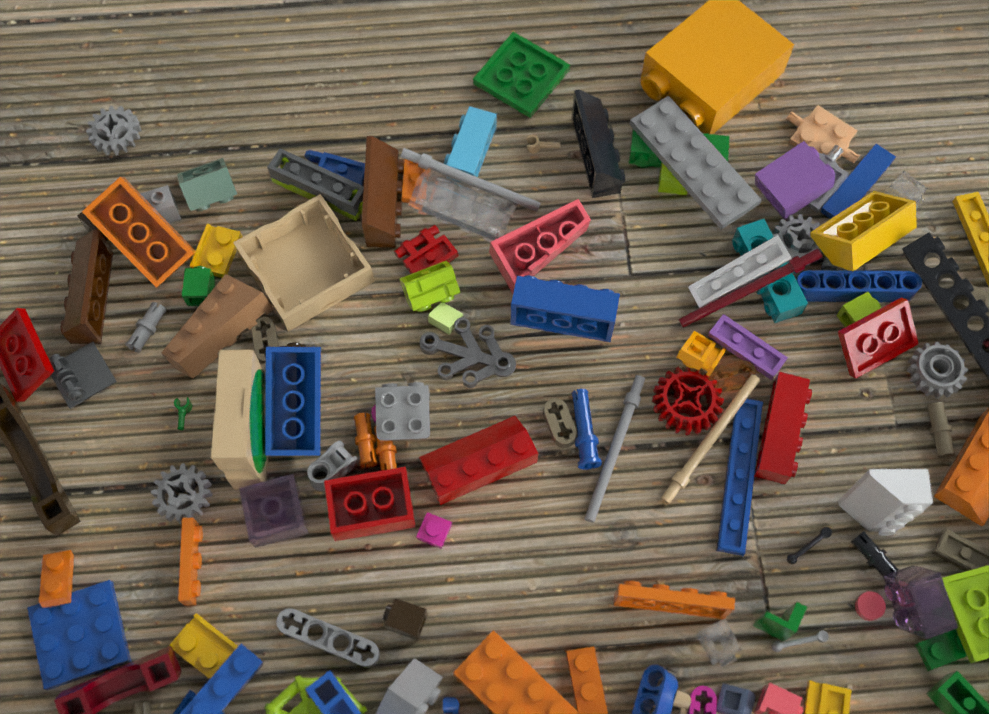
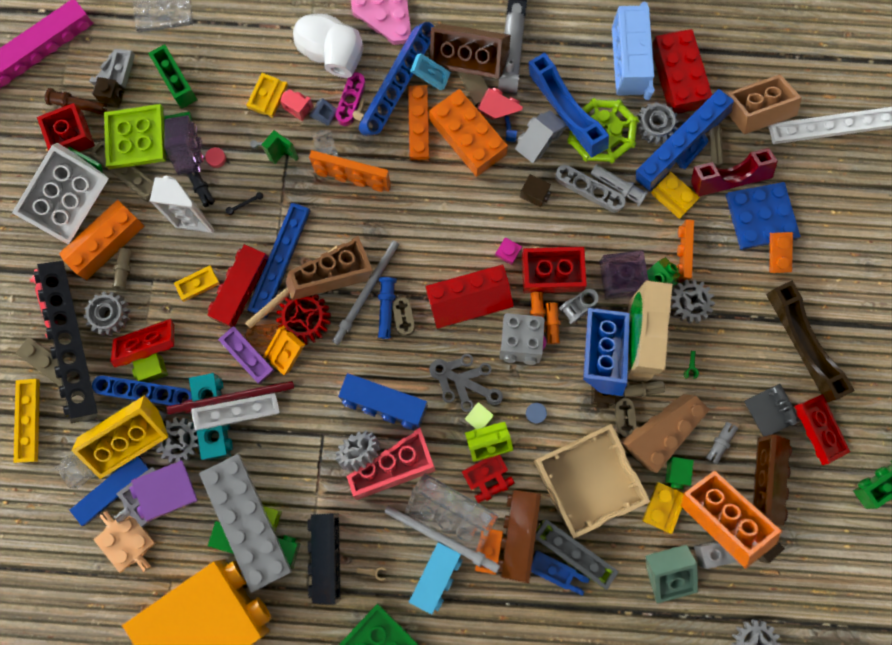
camera: 170 degrees left, 10 degrees up
(221, 521) = (664, 272): none -> green brick
(275, 643) = (627, 189): none -> light grey pin
(376, 331) = (536, 413): none -> sand blue tile
(584, 255) = (357, 451): none -> light grey gear
(662, 457) = (330, 271): none -> medium nougat wedge
(837, 425) = (197, 283): none -> yellow plate

